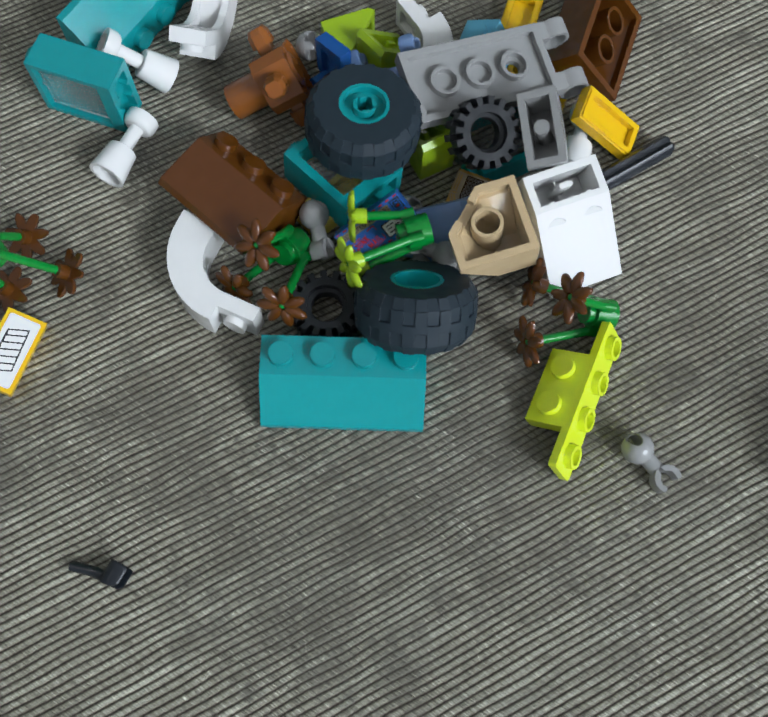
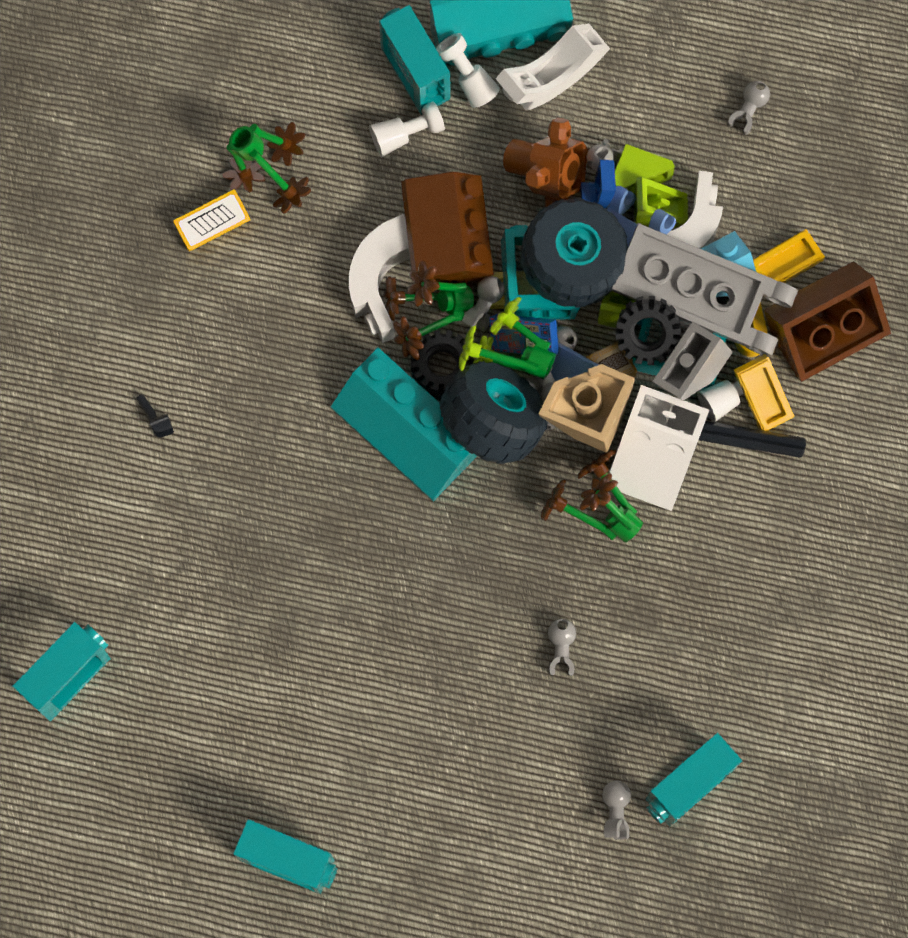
camera: 45 degrees right, 5 degrees up
(569, 396) = (551, 562): neon yellow bracket -> none

